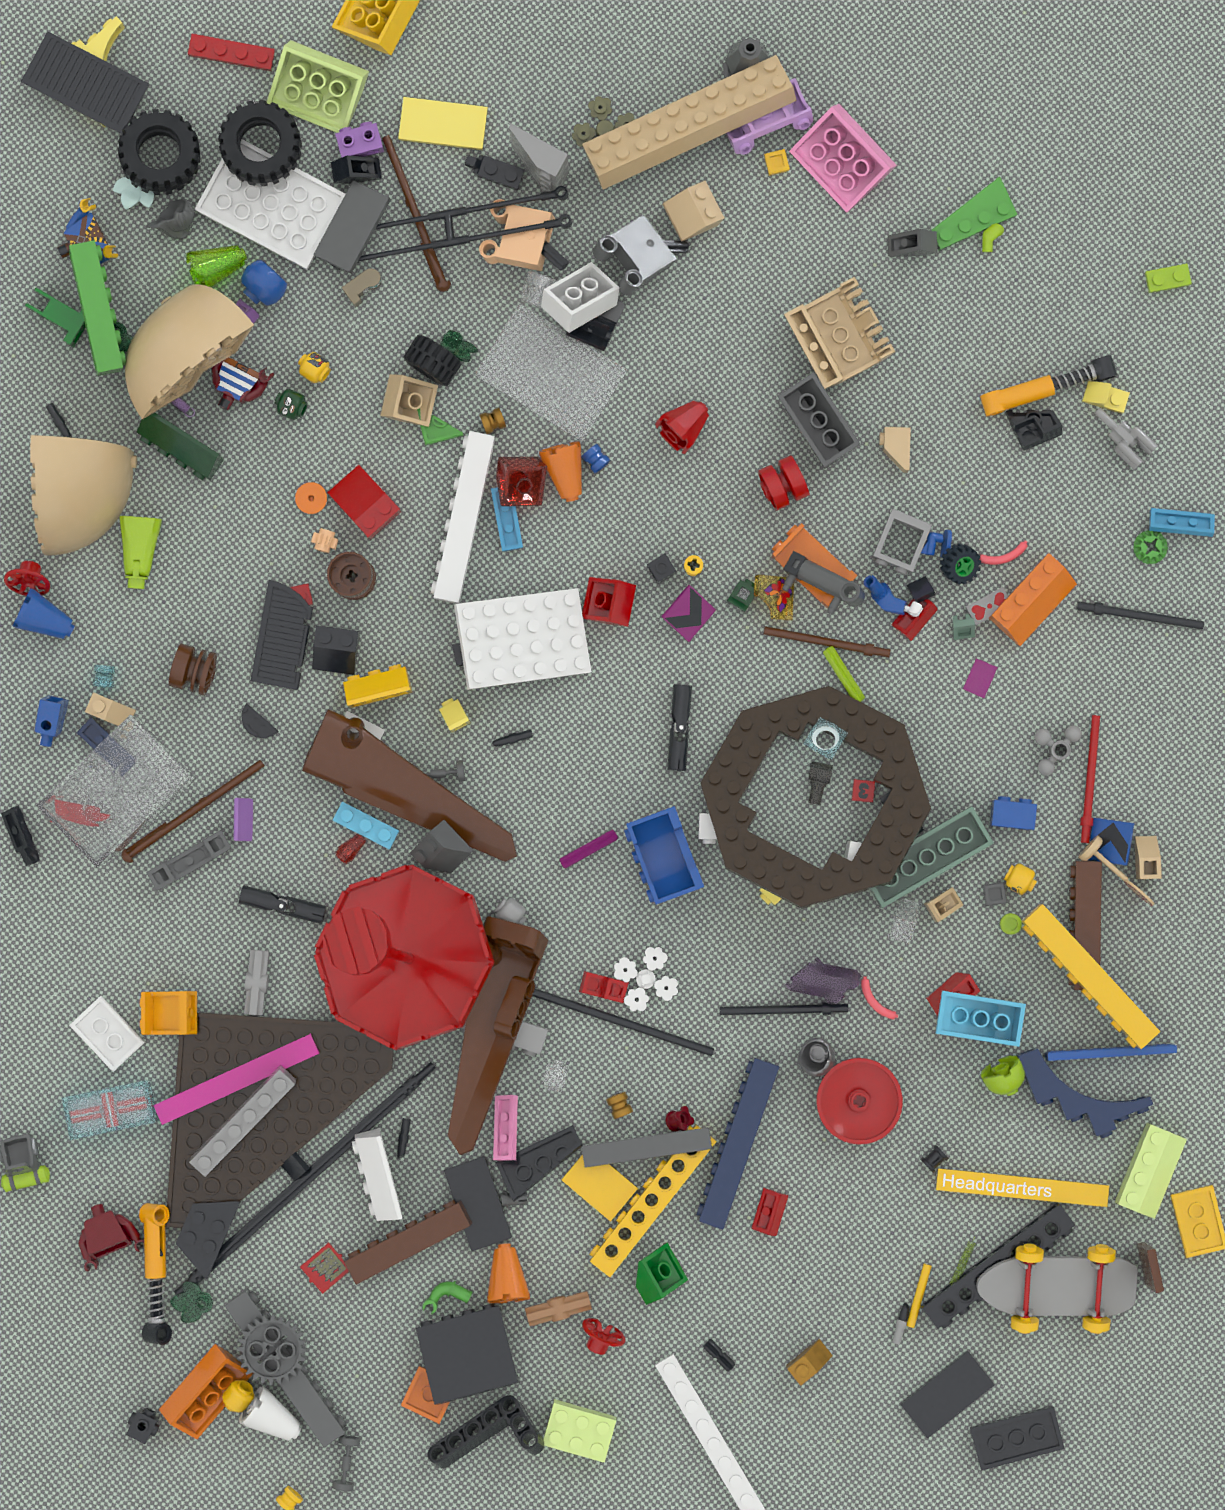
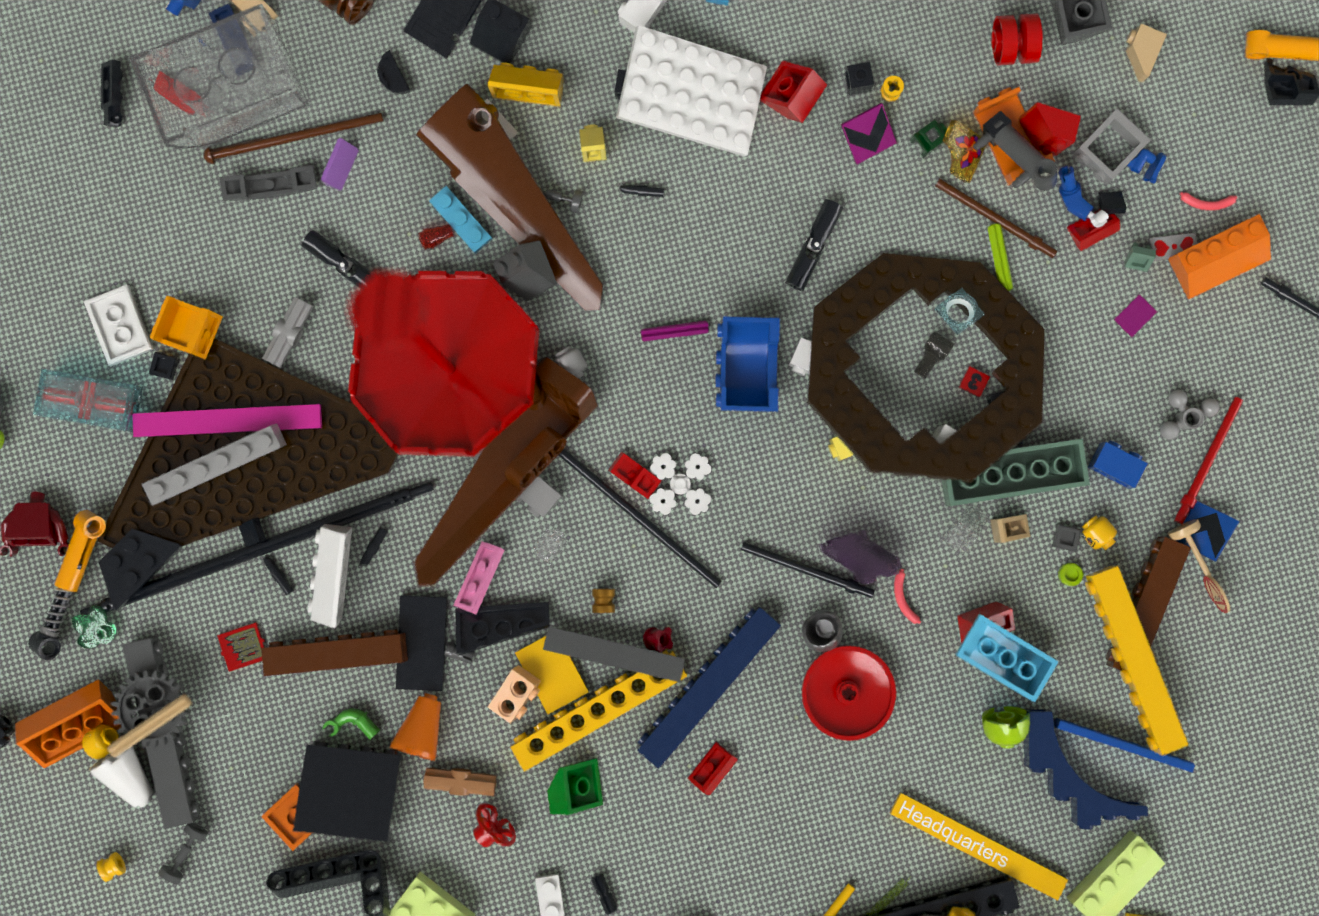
camera: 20 degrees right, 0 degrees up
(160, 1053) = (163, 366): none -> black tile
(279, 1362) = (149, 725): none -> tan axle
(331, 1195) = (278, 576): none -> black piece
(573, 1214) = (511, 691): none -> light nougat brick
(842, 550) = (1050, 128): none -> red slope
(934, 1158) = (901, 781): black bush -> none
(968, 563) = (1169, 197): black wheel -> none
(1147, 858) = (1237, 563): tan slope -> none

